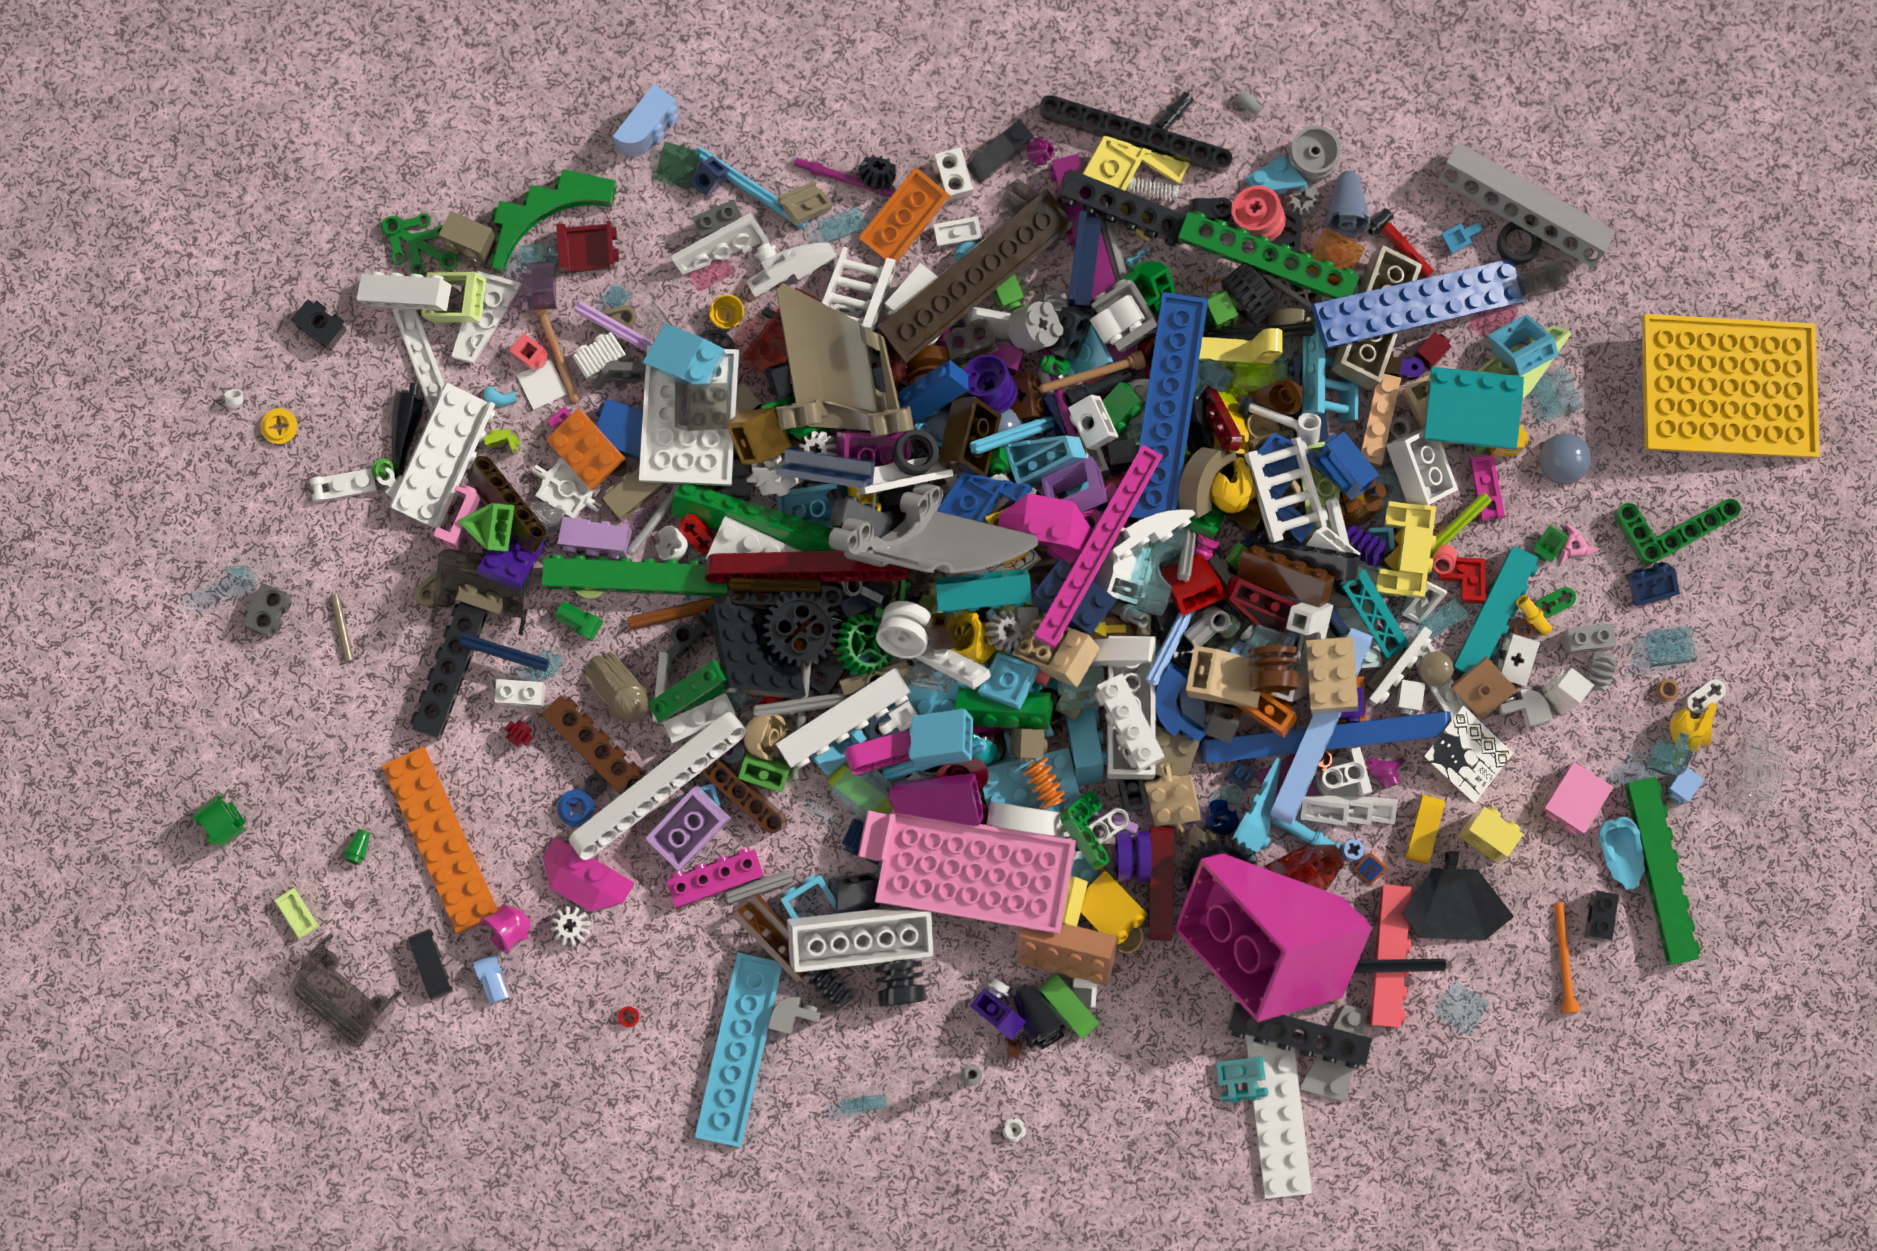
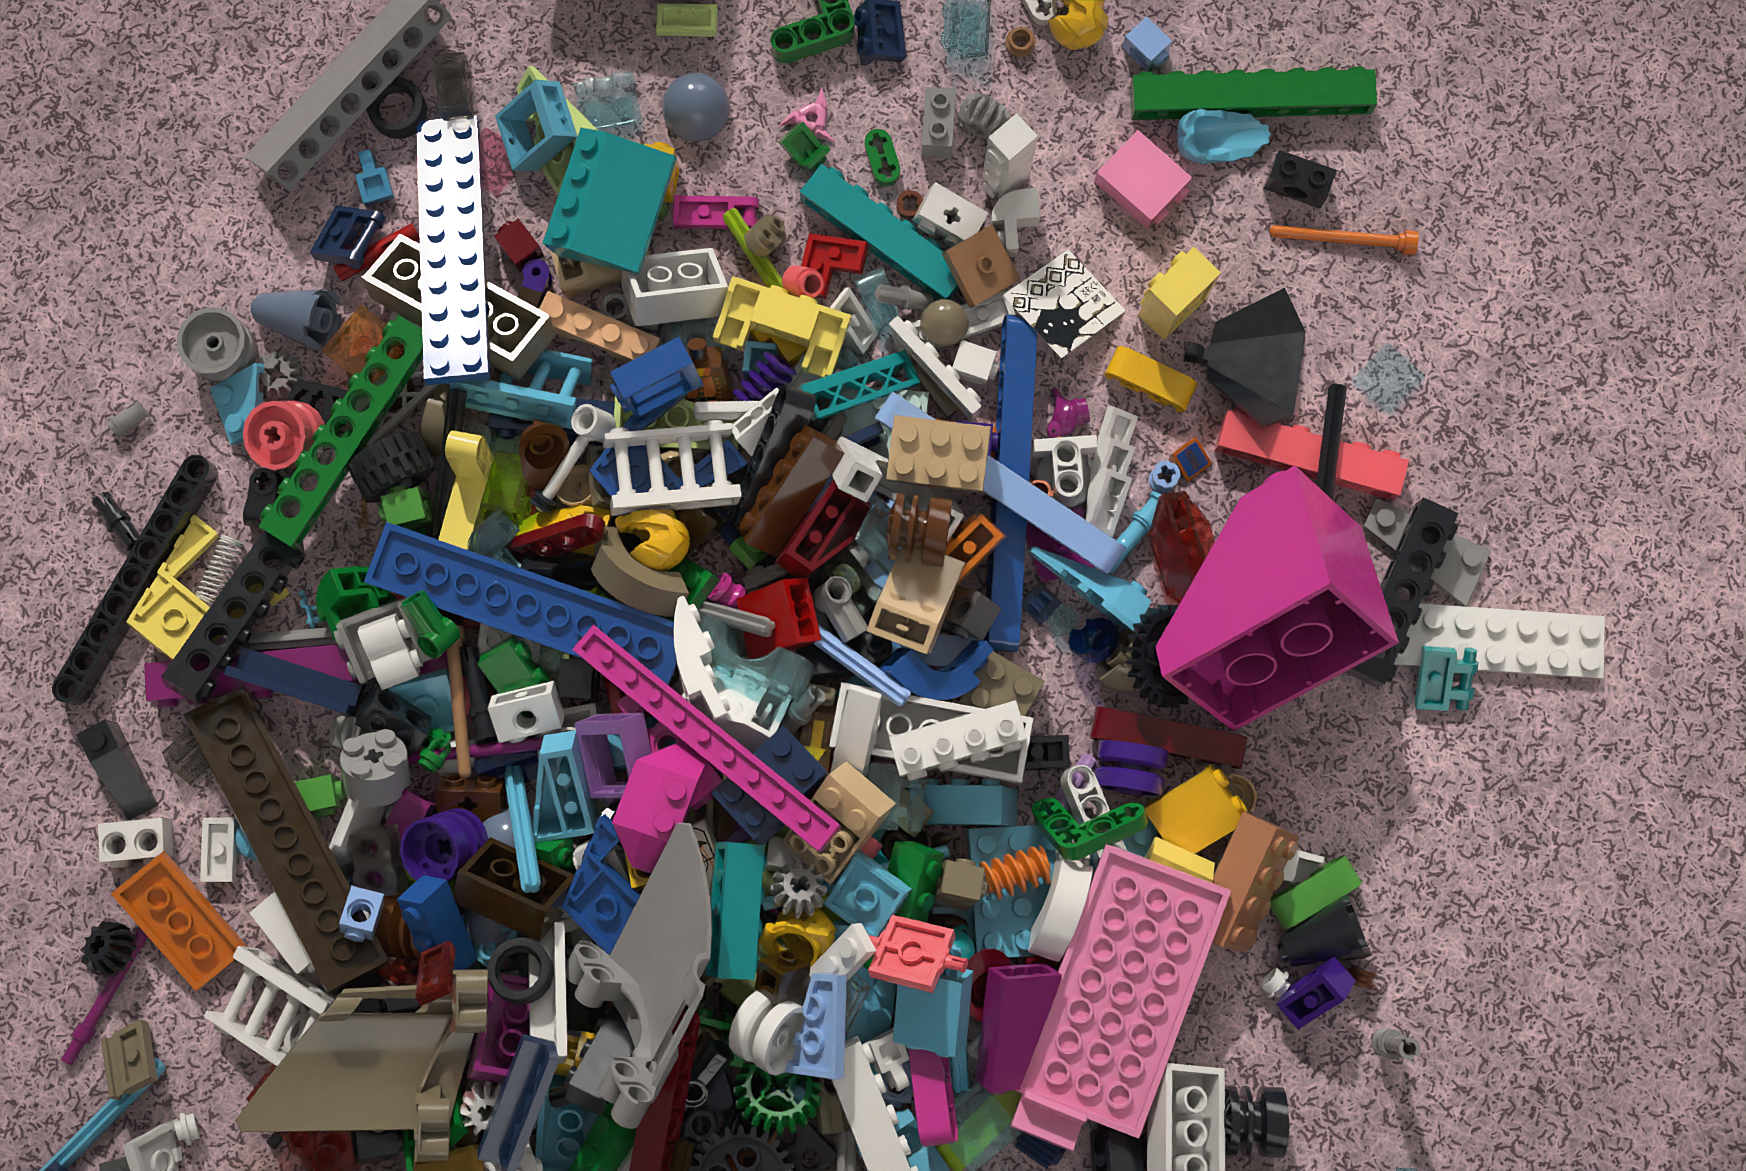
camera: 75 degrees left, 0 degrees up
(796, 260) = (209, 1084): white slope -> none
(842, 225) = (172, 1011): clear light blue plate -> none
(905, 395) = (435, 973): none -> clear red plate
(908, 664) = (822, 1035): none -> light blue wing
(942, 334) = (359, 900): none -> light blue brick
(976, 716) = (914, 954): none -> coral plate
(1014, 1136) = (1477, 996): white plate -> none
(1040, 151) = (129, 714): magenta gear -> none
(1137, 348) = (434, 631): none -> green piece
(1173, 800) = (1062, 700): tan plate -> none
(1379, 221) = (329, 279): black pin -> none
(1395, 604) = (848, 359): none -> clear light blue plate
(1417, 222) = (340, 232): none -> dark blue plate
(1449, 635) = (903, 297): none -> light grey axle
(1475, 526) = (765, 235): none -> dark tan plate
(1534, 615) = (895, 185): yellow pin -> none
(1631, 439) = (686, 19): none -> yellowish green plate
(1670, 758) = (1112, 52): clear light blue brick -> none

